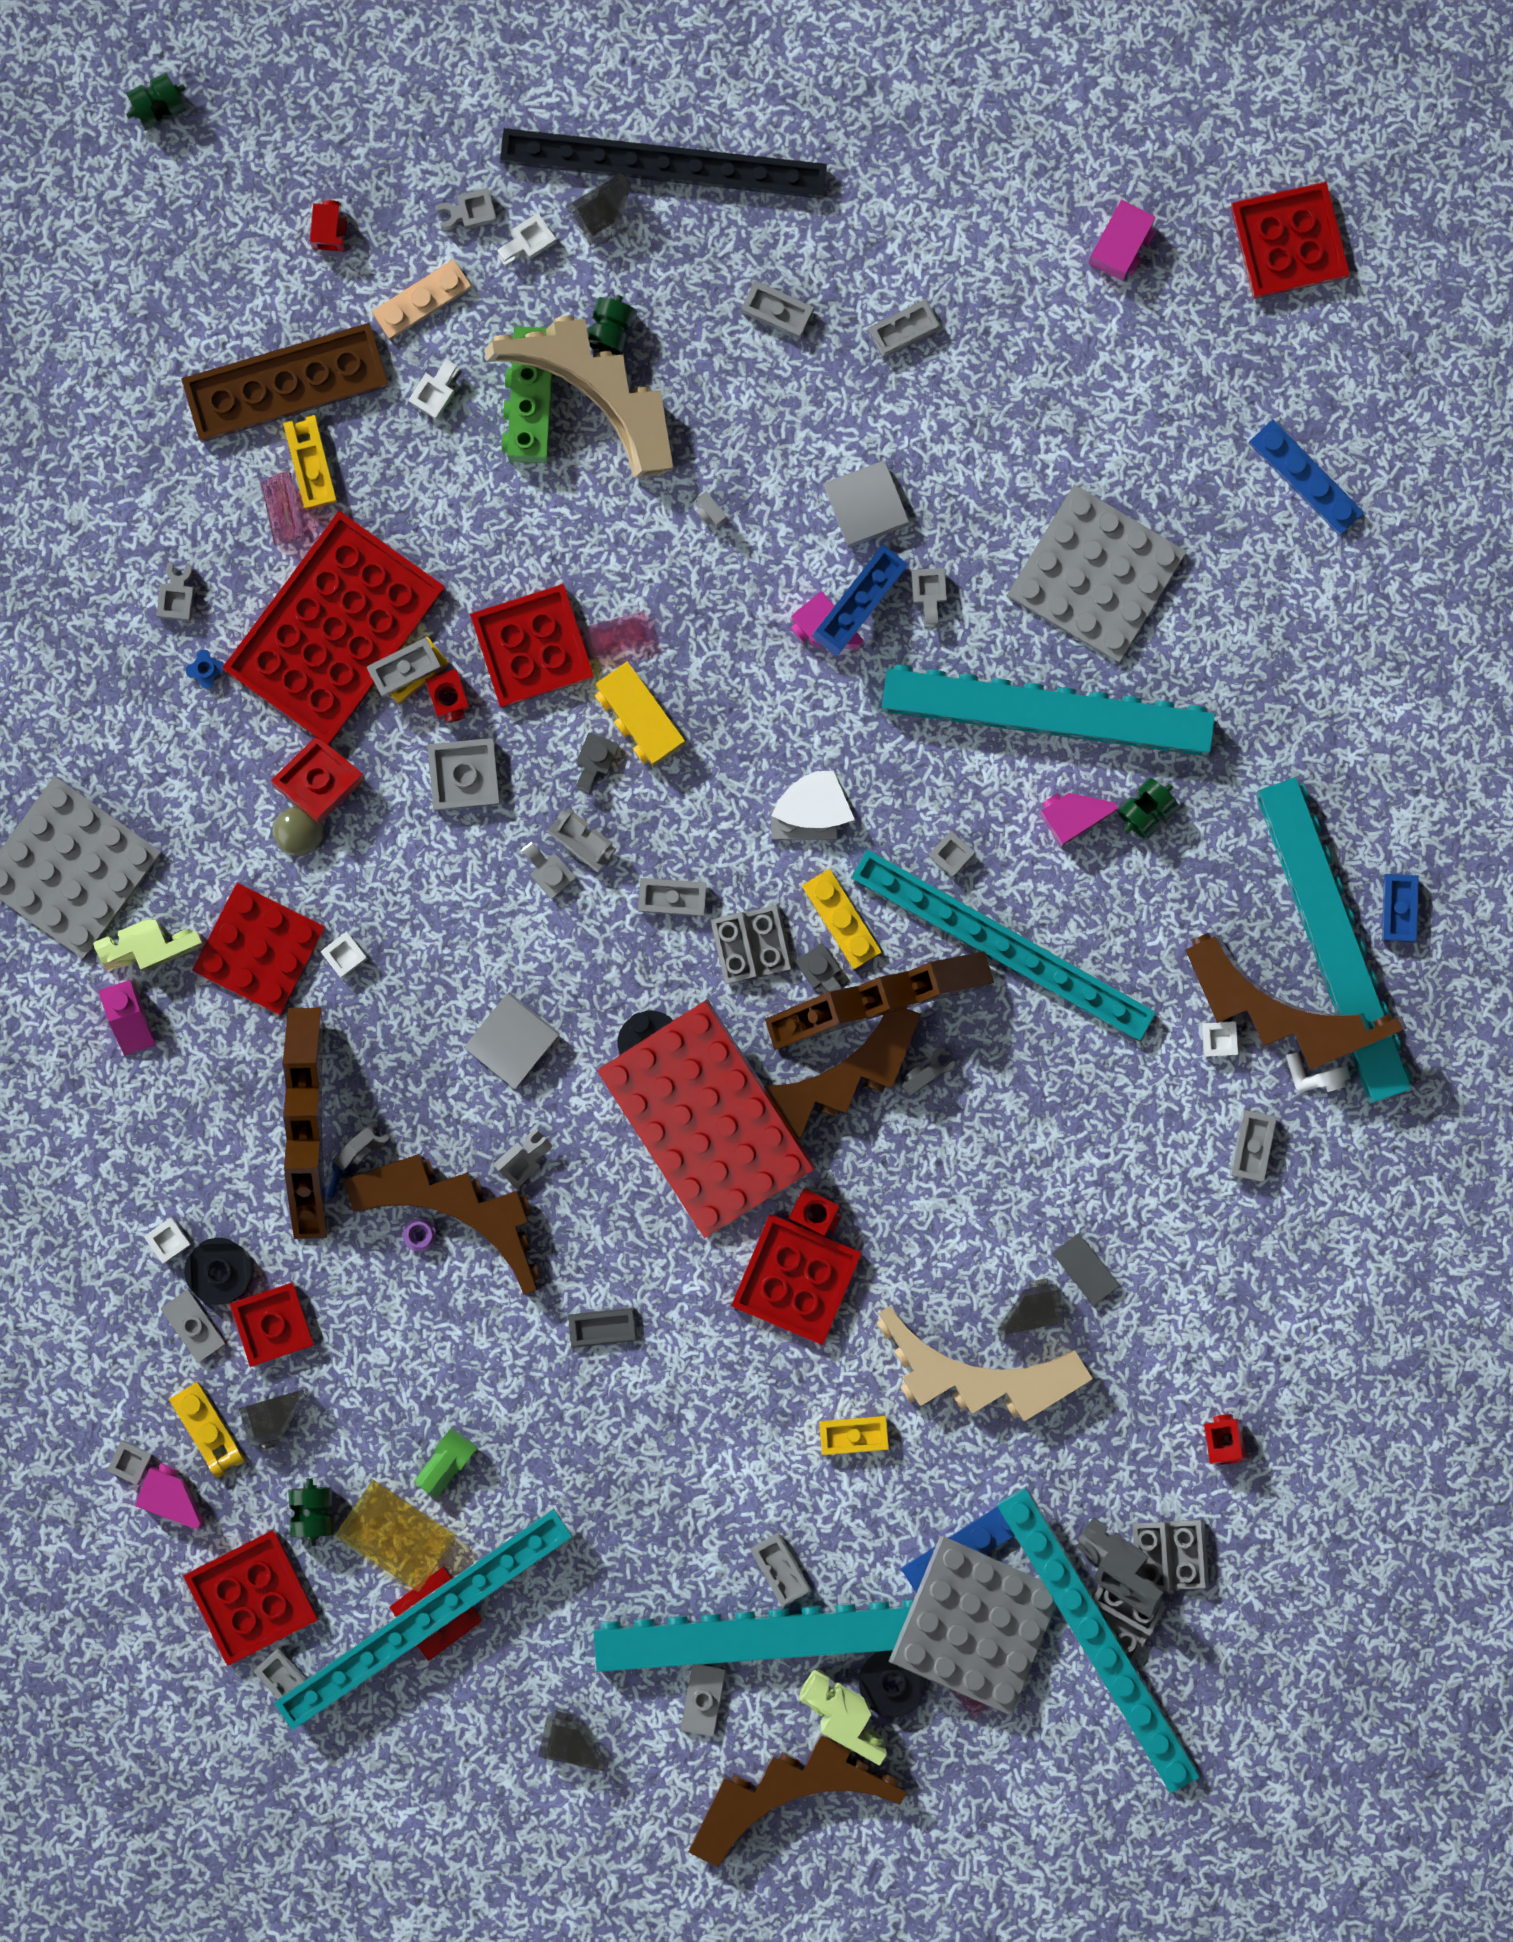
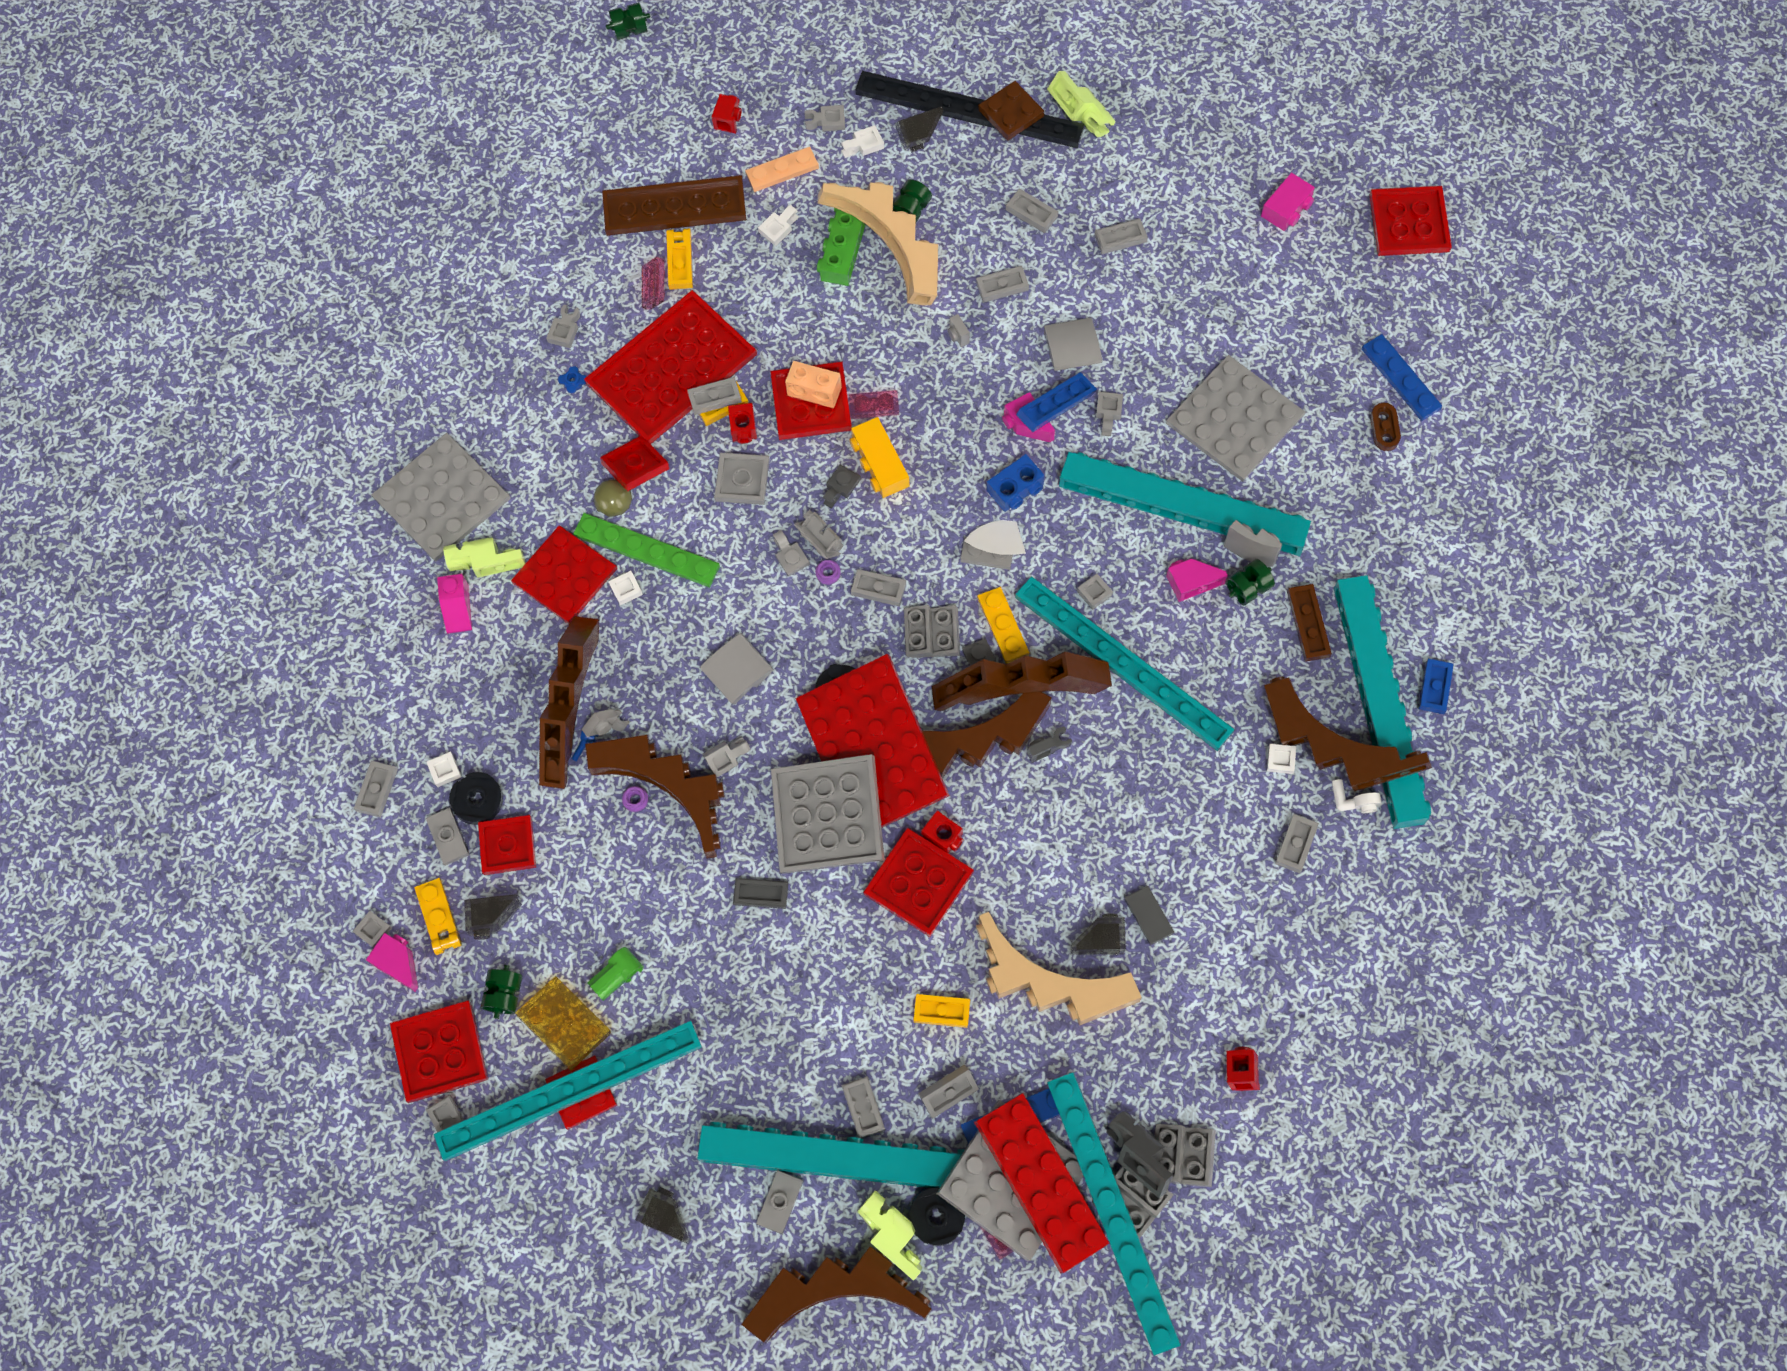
camera: 15 degrees right, 15 degrees down
(87, 1282) = (375, 789): none -> light grey plate
(358, 895) = (646, 550): none -> bright green plate
(533, 630) = (813, 384): none -> light nougat brick
(602, 897) = (825, 565): none -> medium lavender plate
(667, 1217) = (827, 814): none -> light grey plate
(723, 161) = (1011, 110): none -> reddish brown plate
(756, 429) = (1002, 284): none -> light grey plate
(817, 135) = (1080, 104): none -> yellowish green plate
(818, 717) = (1011, 480): none -> blue brick
(879, 1532) = (948, 1091): none -> light grey plate
(1009, 1625) = (1041, 1183): none -> red plate
(1158, 763) = (1249, 546): none -> light grey slope
(1230, 849) = (1309, 622): none -> reddish brown plate
(1294, 555) = (1385, 428): none -> reddish brown plate

